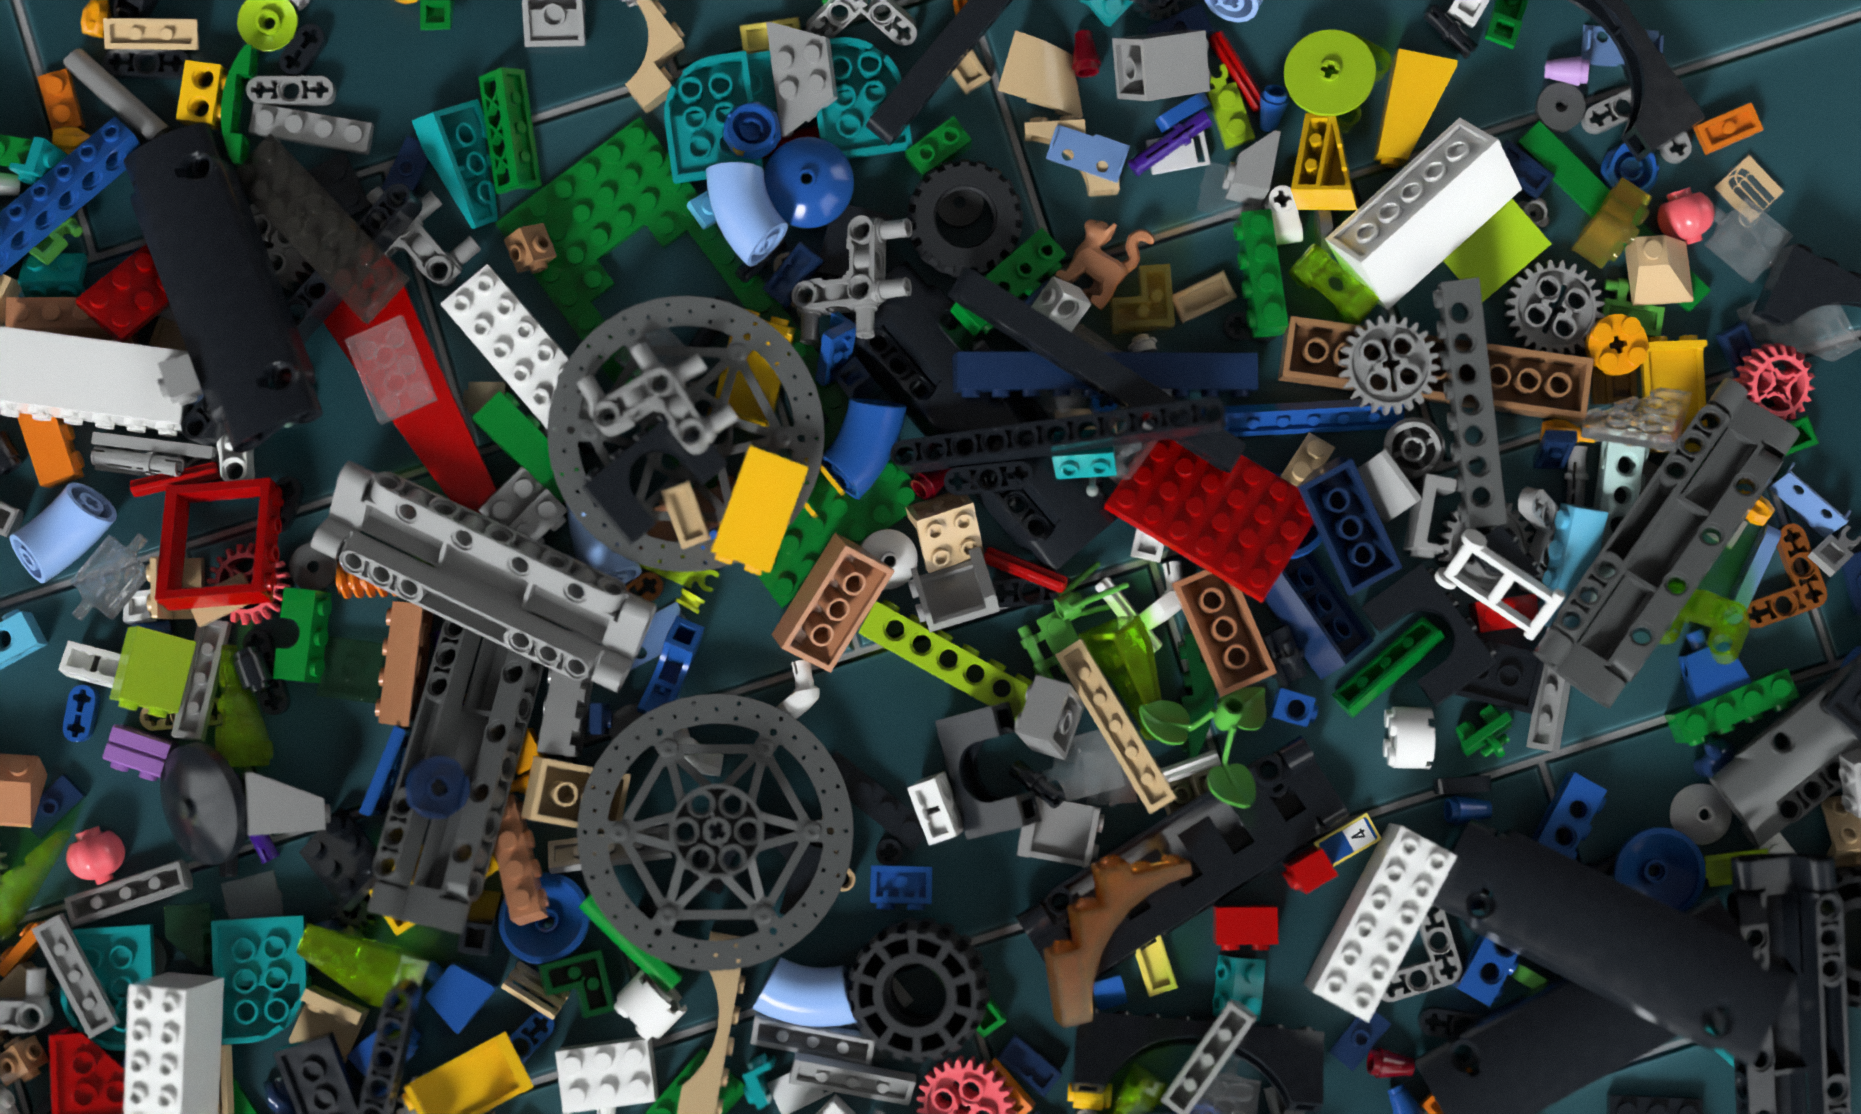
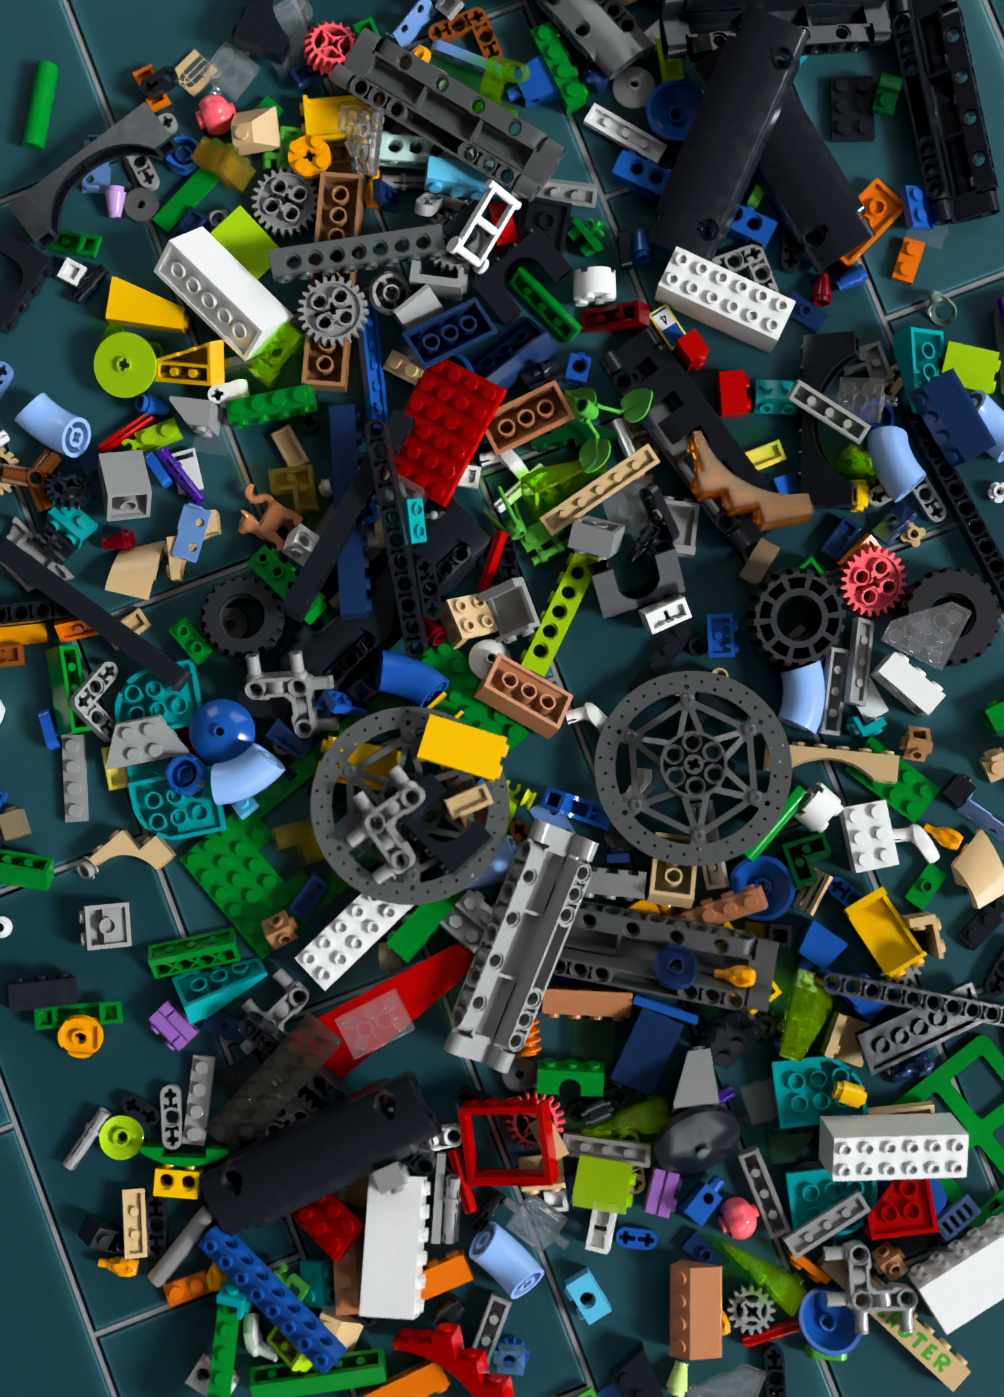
camera: 90 degrees left, 0 degrees up
(111, 799) = (695, 1207): none -> blue torso
(132, 513) = (489, 1210): none -> black axle
(250, 1019) = (849, 1093): none -> yellow brick
(330, 740) = (645, 1050): none -> dark blue slope
(412, 98) = (173, 1026): none -> medium lavender brick
(419, 872) = (737, 975): none -> light orange piece
(573, 290) = (309, 897): none -> dark blue plate
(660, 278) = (299, 834): none -> clear yellow brick
(1002, 947) = (759, 562): none -> dark tan slope
(1093, 803) = (651, 494): none -> black beam
(1363, 766) = (616, 318): none -> dark red slope
(1631, 796) = (625, 133): none -> white plate
(1727, 143) = (159, 83): none -> black beam

